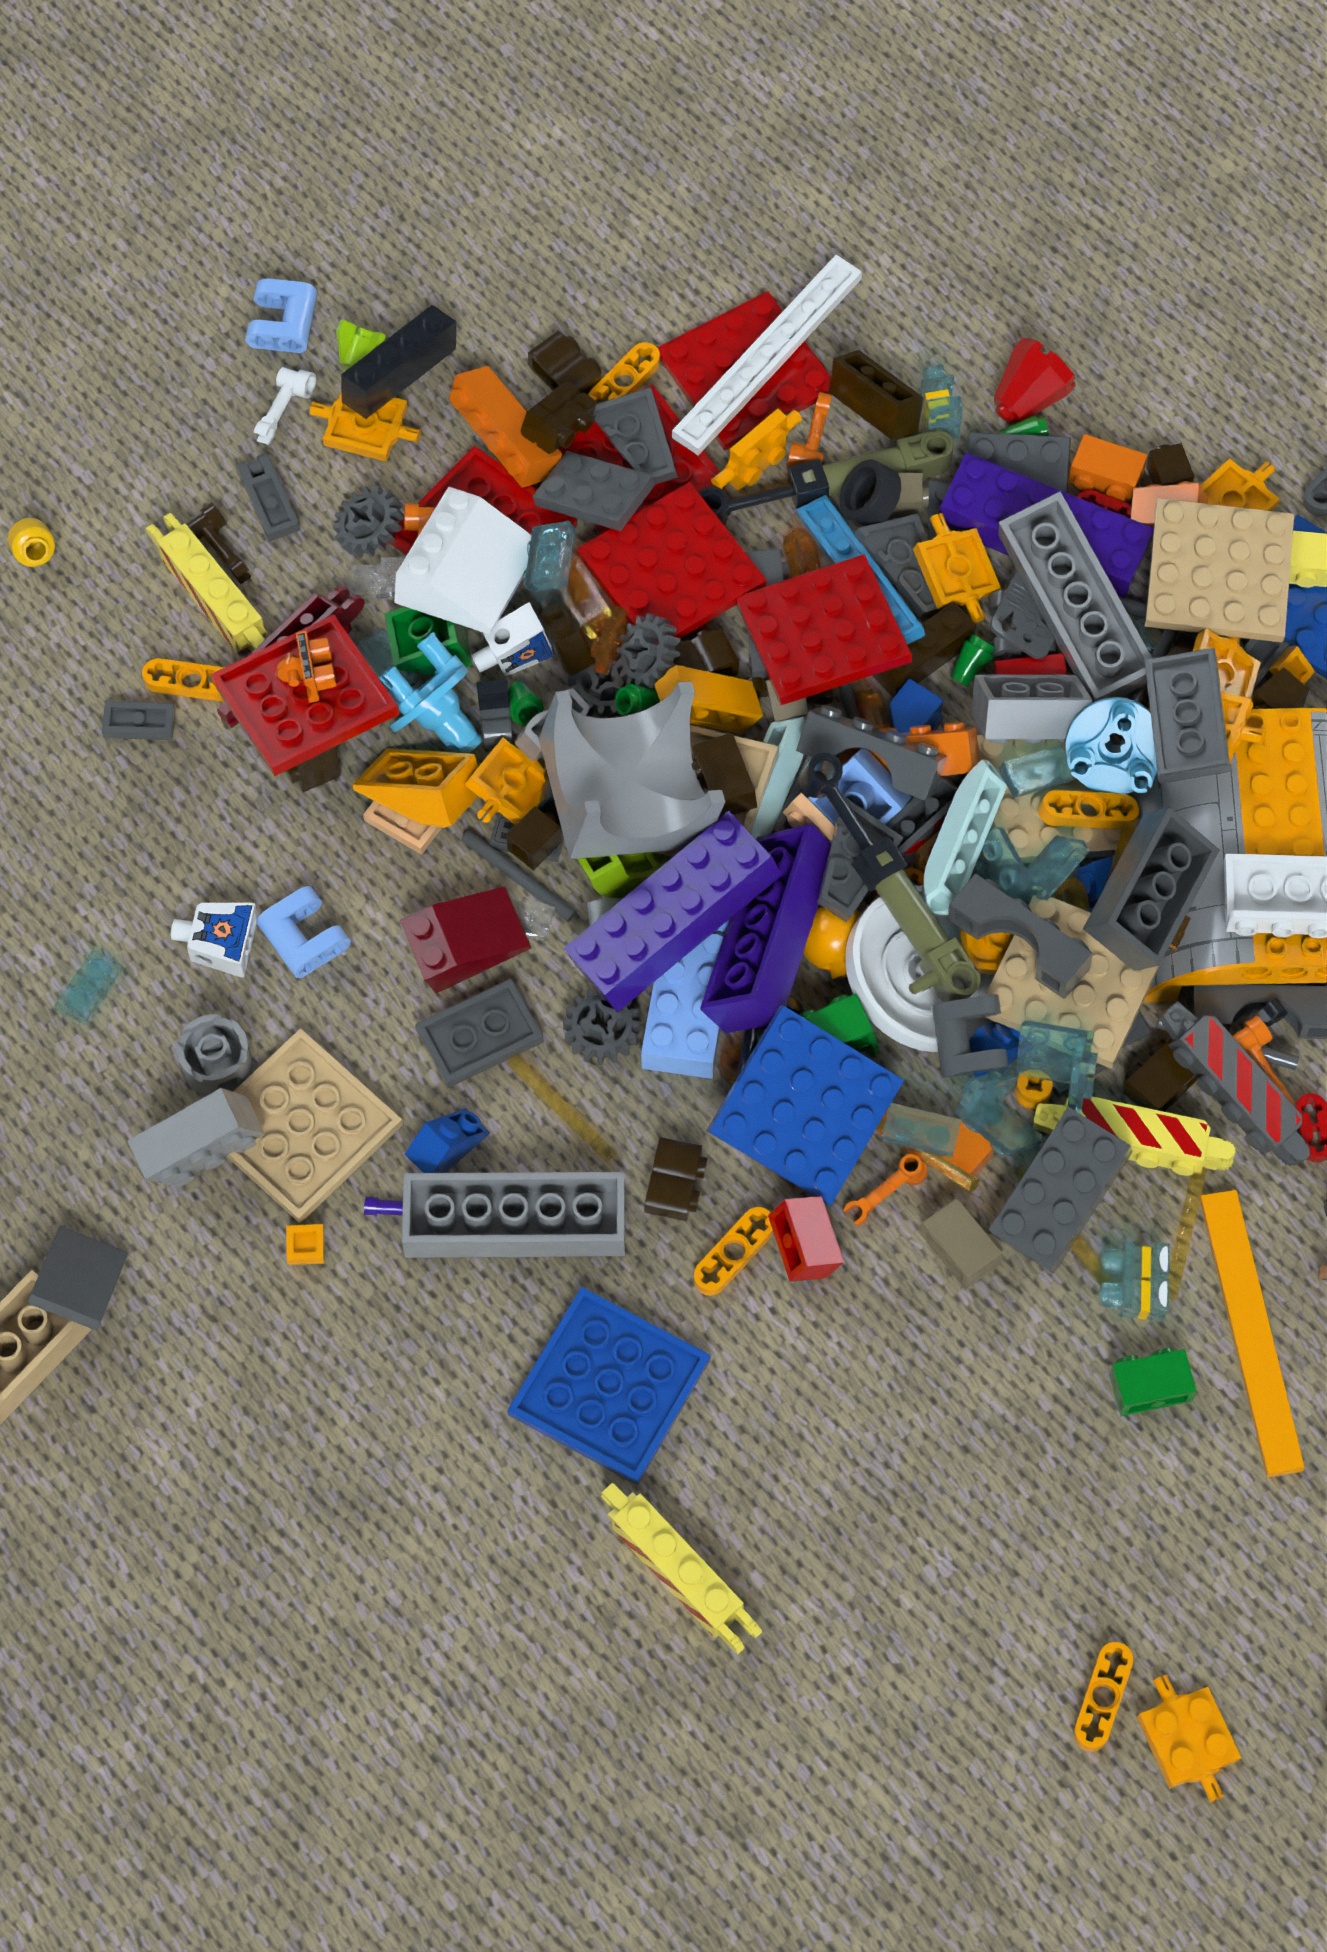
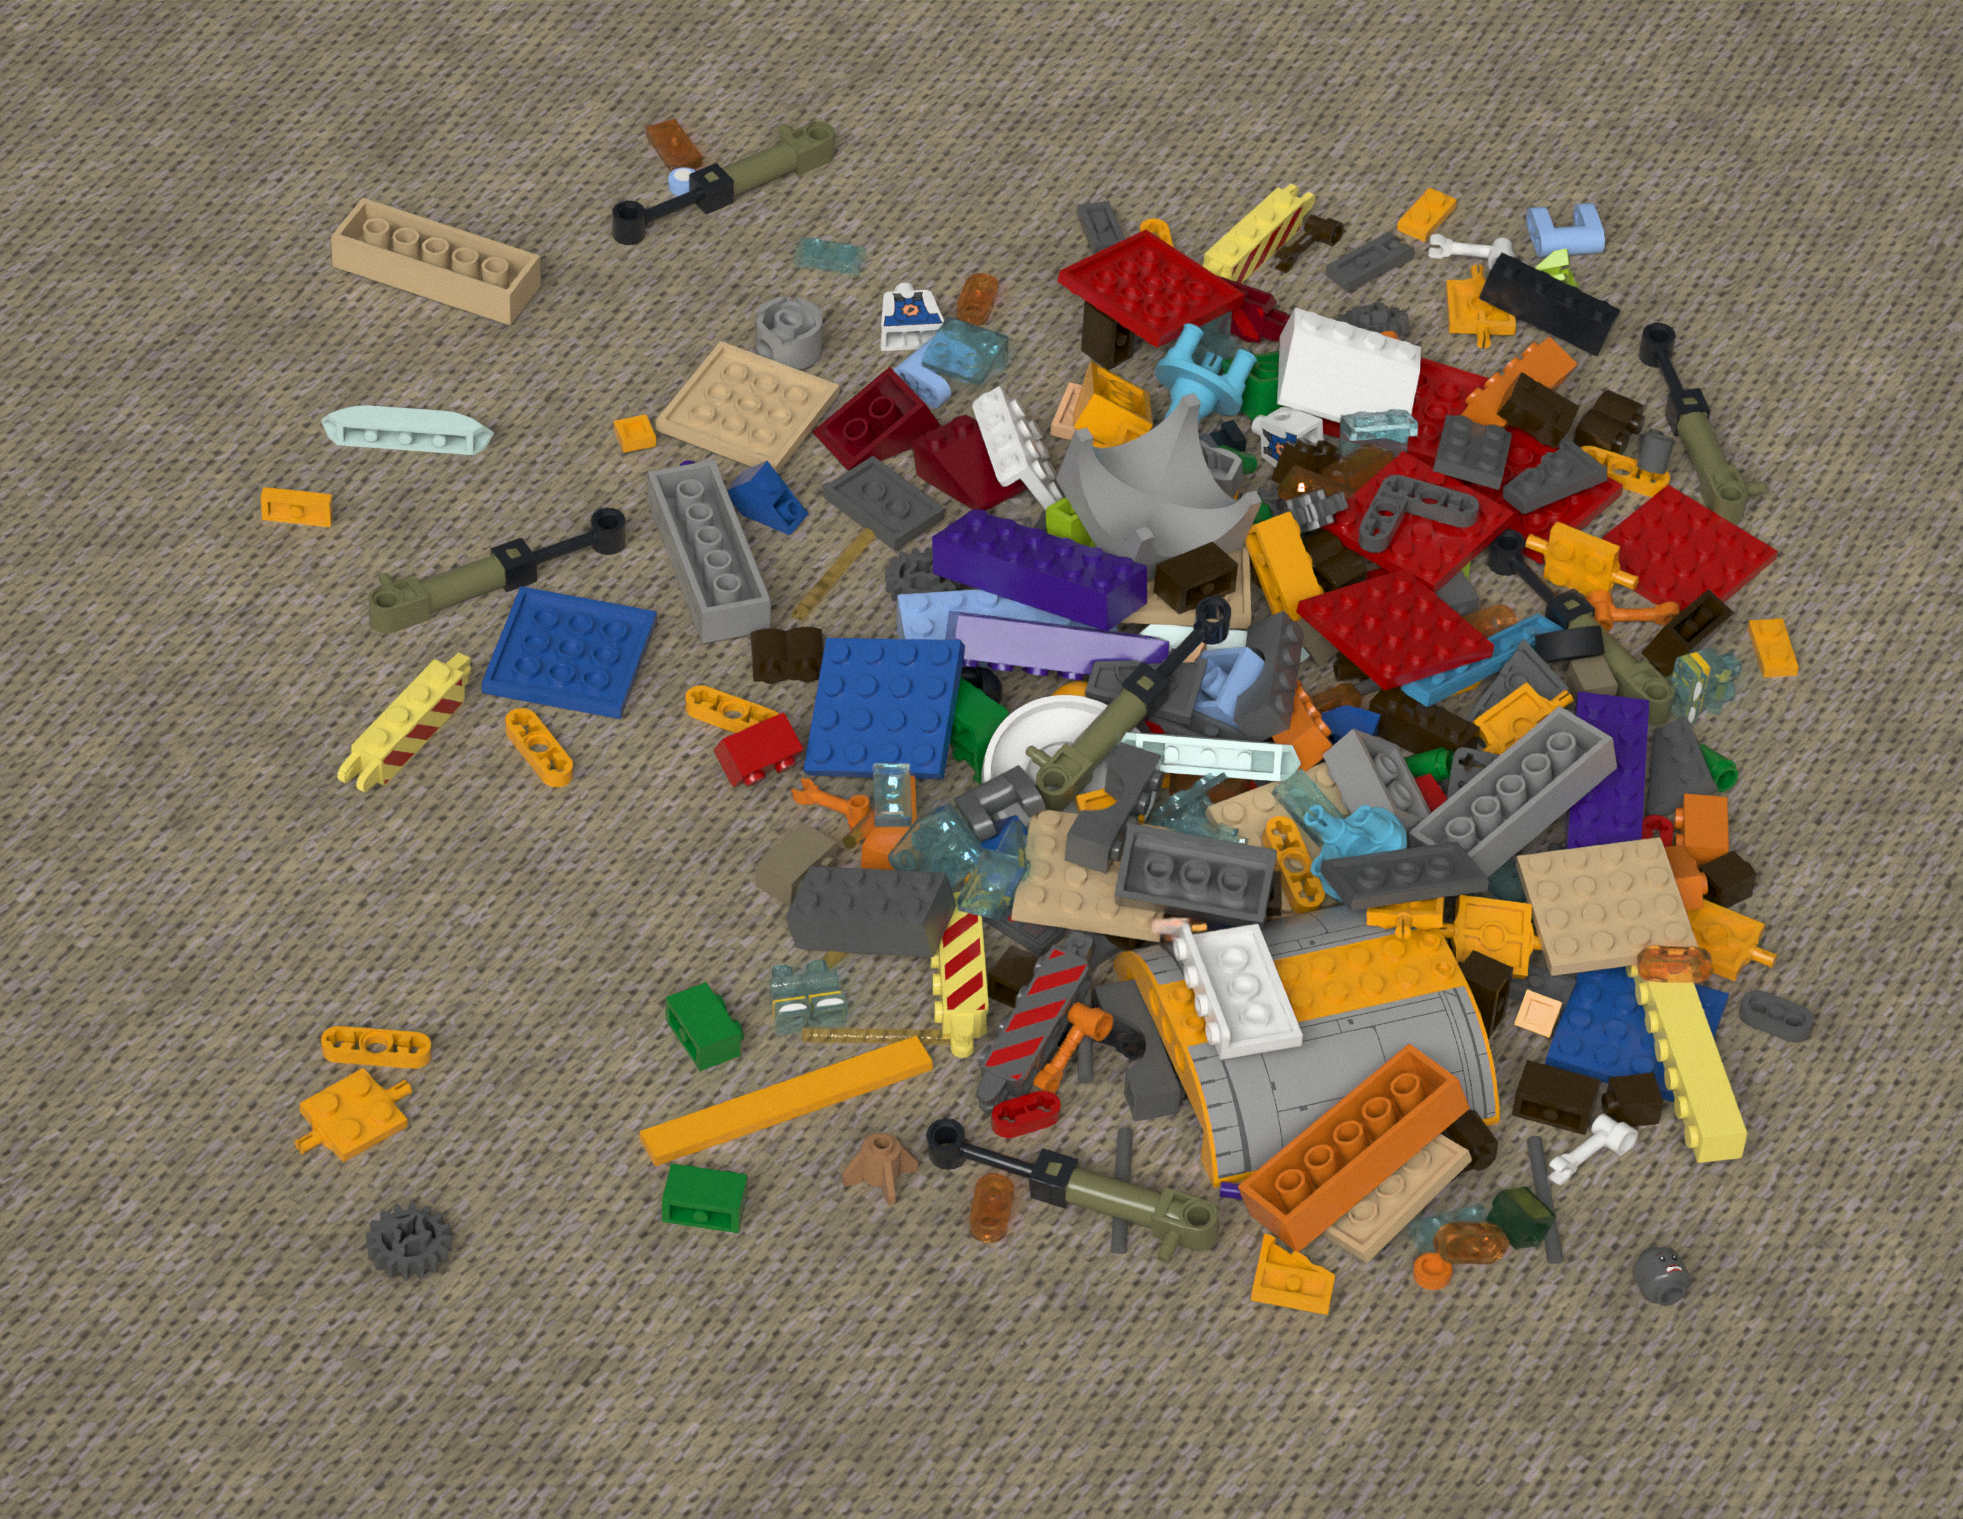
camera: 70 degrees right, 20 degrees down
(31, 542) = (1244, 122): yellow head -> none
(78, 1278) = (544, 288): dark grey tile -> none
(196, 1138) = (698, 324): light grey brick -> none
(209, 865) = (977, 299): none -> clear orange plate
(211, 426) = (1427, 214): none -> light orange plate
(211, 1514) = (406, 429): none -> light aqua brick
(299, 896) = (966, 351): none -> clear light blue bracket
(315, 678) = (1170, 271): orange hips -> none
(324, 1596) = (296, 507): none -> light orange plate
(368, 1011) = (876, 422): none -> dark red slope
(472, 889) = (1016, 446): none -> white bracket
(478, 1445) = (511, 565): none -> piece
(573, 300) = (1689, 418): none -> olive piece
(627, 341) = (1654, 451): none -> dark grey piece
(663, 569) = (1402, 502): none -> dark grey beam
(703, 1445) = (539, 735): none -> light orange beam
(766, 355) = (1697, 551): white plate -> none
(884, 337) = (1772, 647): none -> light orange plate
(1031, 382) = (1770, 751): red cone -> none
(1311, 526) = (1674, 964): none -> clear orange plate

